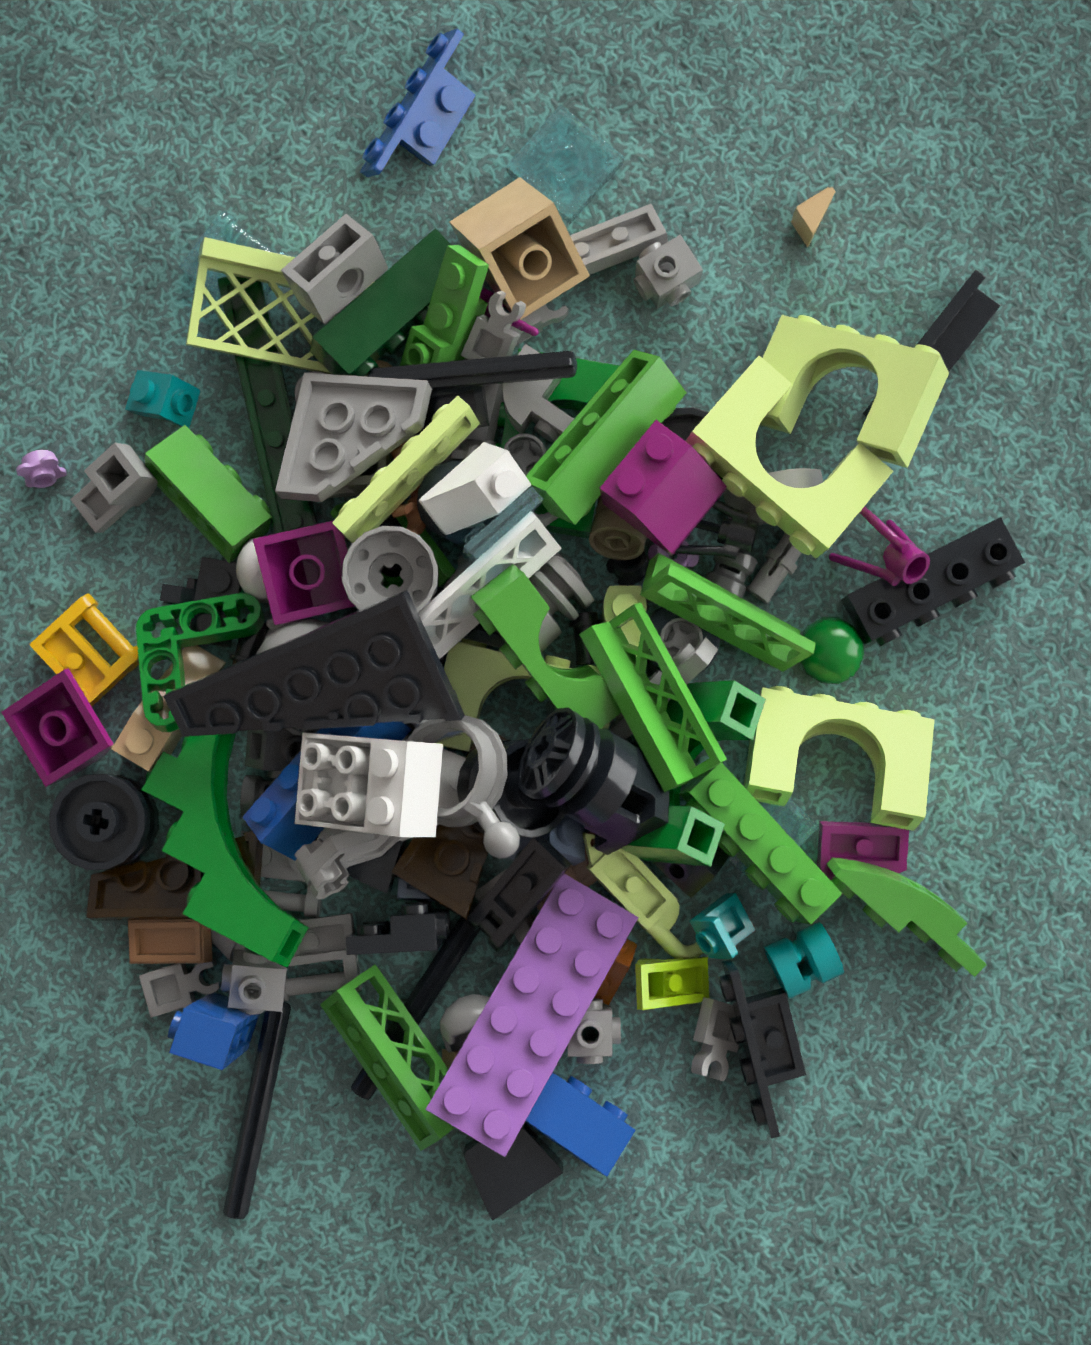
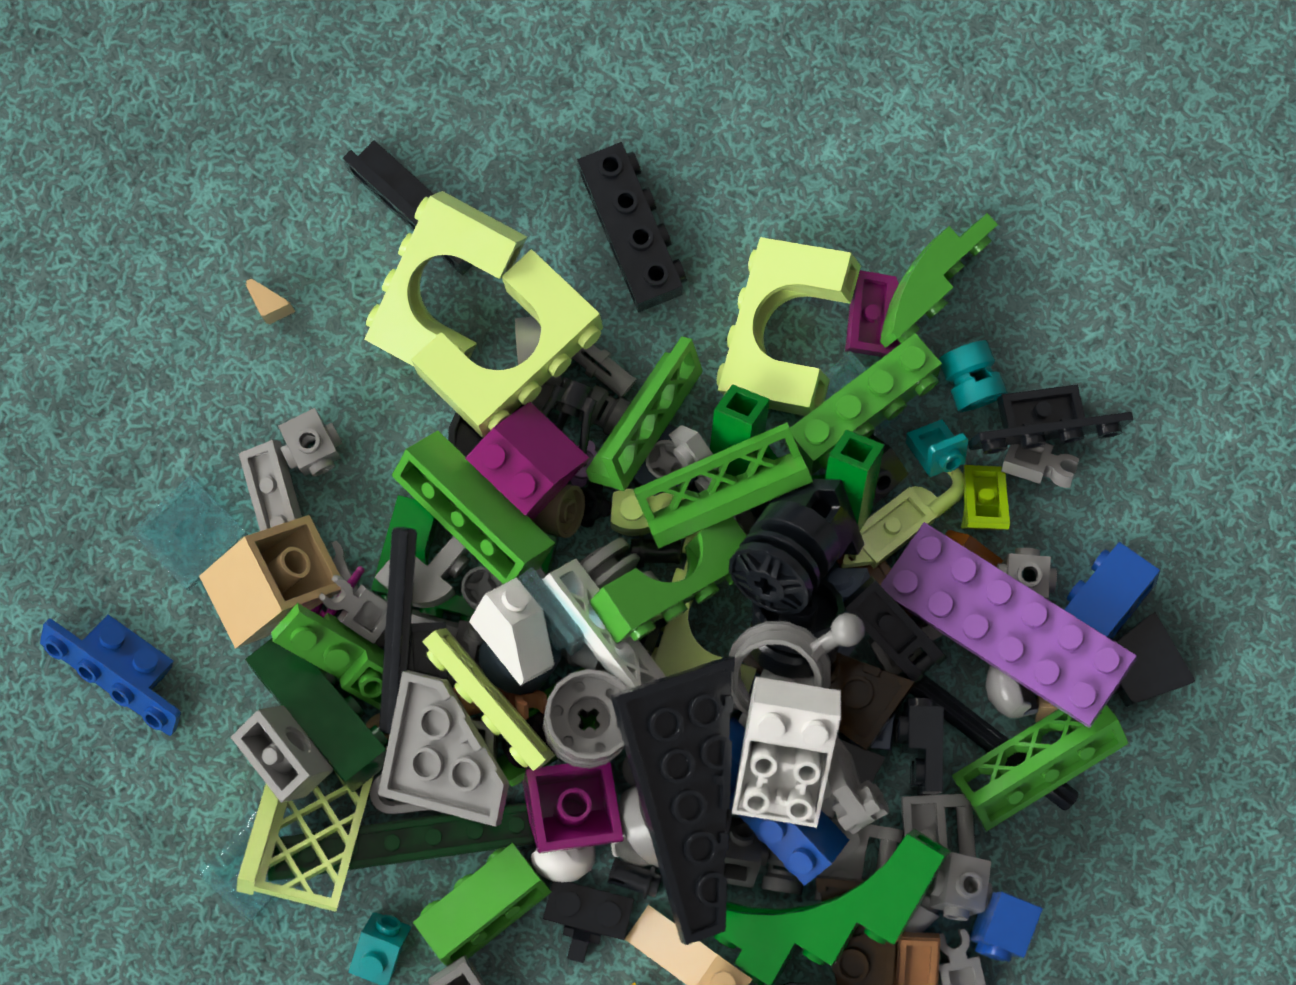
camera: 90 degrees left, 5 degrees down
(170, 643) = (632, 951): green beam -> none
(256, 1113) = (1086, 903): black axle -> none
(836, 650) = (687, 318): green hair -> none
(902, 557) = (607, 250): magenta plant -> none

